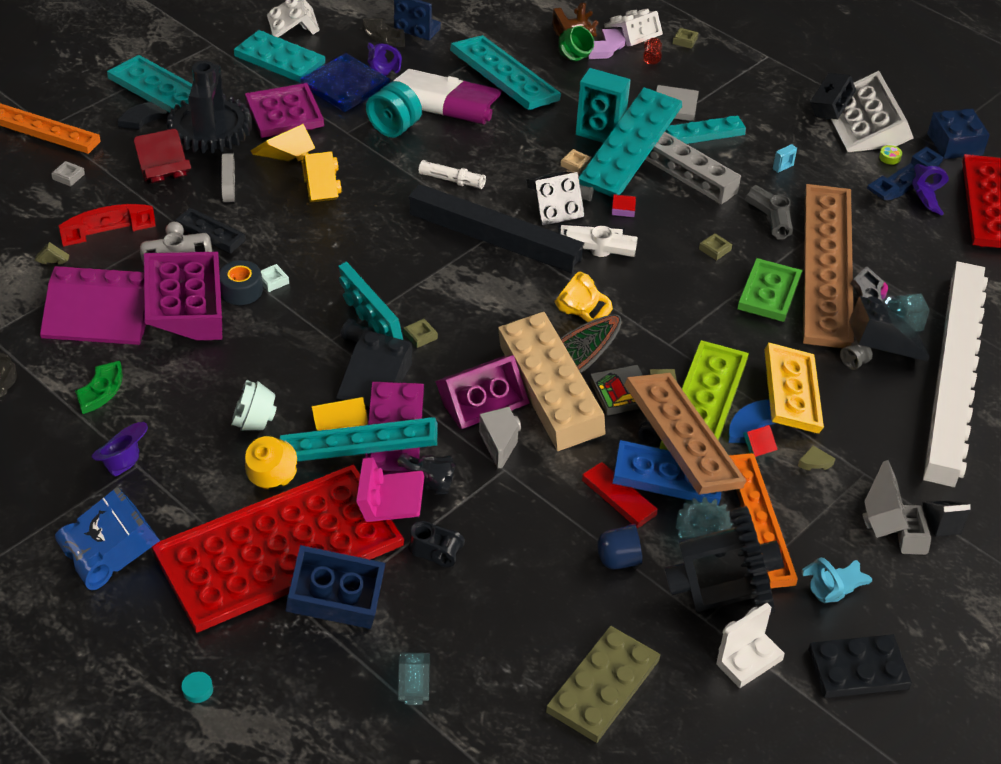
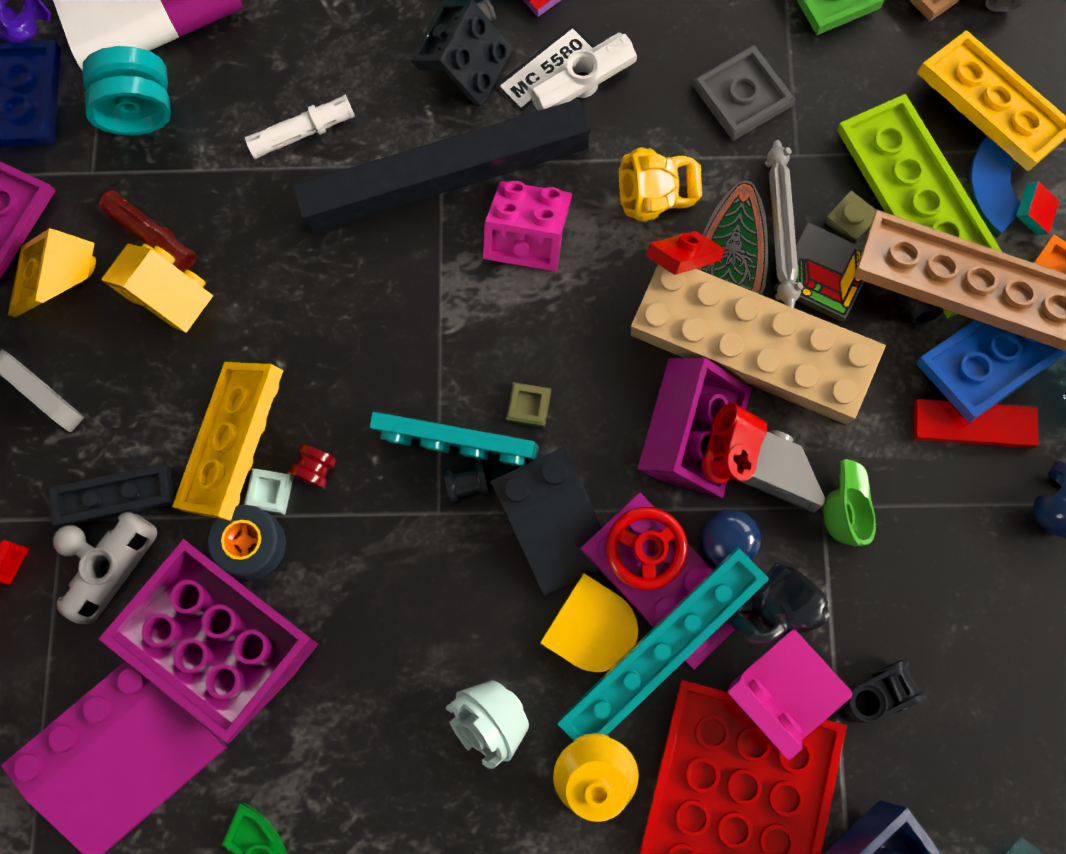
camera: 35 degrees left, 30 degrees up
(272, 246) = (228, 439): none -> yellow plate
(301, 279) = (312, 466): none -> dark red wheel
(344, 166) = (146, 229): none -> clear red pin
(399, 396) = (660, 539): none -> red piece
(447, 433) = (726, 532): none -> dark blue helmet
(488, 398) = (736, 440): none -> red piece
(500, 269) = (526, 225): none -> dark pink bracket
(517, 466) = (849, 508): none -> bright green cap
(556, 317) = (684, 252): none -> red plate
(623, 354) = (783, 224): none -> light grey wheel
(672, 303) = (743, 92): none -> dark grey tile

